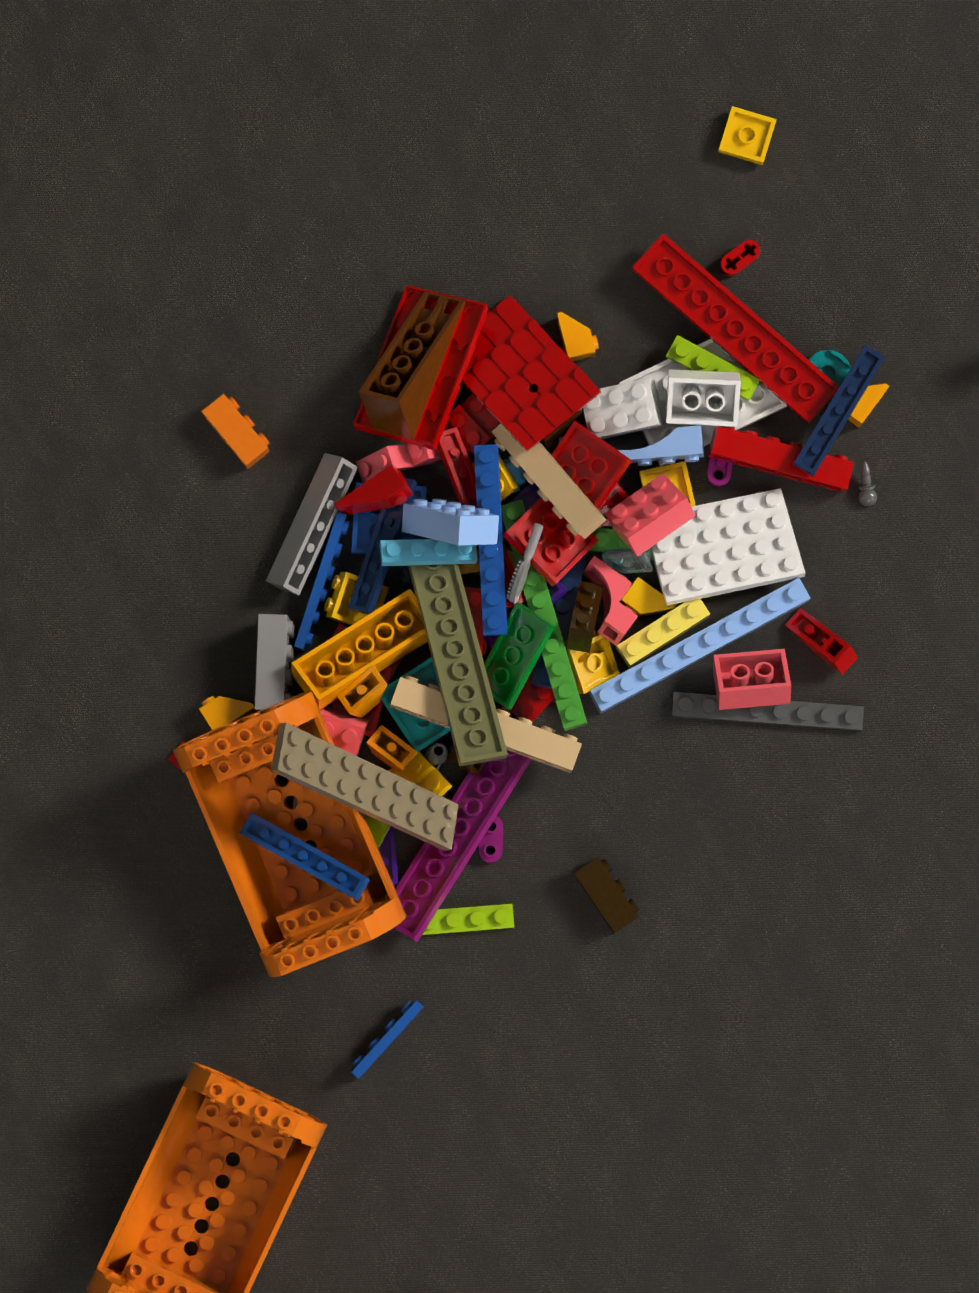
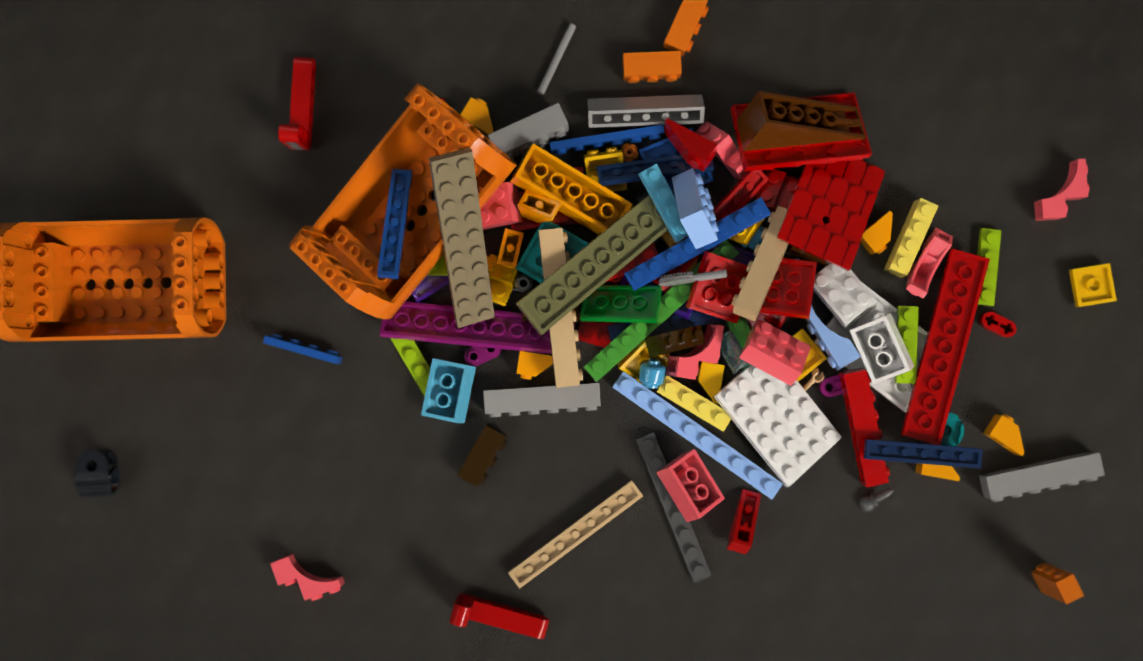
camera: 70 degrees right, 5 degrees up
(107, 904) = (298, 133): none -> red beam
(201, 593) = (556, 59): none -> light grey bar
(265, 492) = (652, 66): none -> orange brick
(346, 558) = (634, 153): none -> orange plate
(515, 896) = (448, 391): none -> medium azure slope
(532, 788) = (532, 364): none -> light orange slope
(575, 796) = (541, 398): none -> light grey brick
(598, 305) = (910, 237): none -> light yellow brick
(607, 660) = (652, 373): none -> dark azure head
(632, 101) = (1073, 189): none -> coral arch
(635, 302) = (925, 266): none -> coral arch
(653, 226) = (989, 248): none -> lime plate
(661, 1159) = (288, 570): none -> coral arch
(701, 484) = (815, 378): none -> tan hand
(744, 834) = (575, 534): none -> tan plate
(795, 963) = (497, 615): none -> red beam
(863, 309) = (1005, 433): none -> light orange slope
(927, 294) = (1042, 475): none -> light grey brick

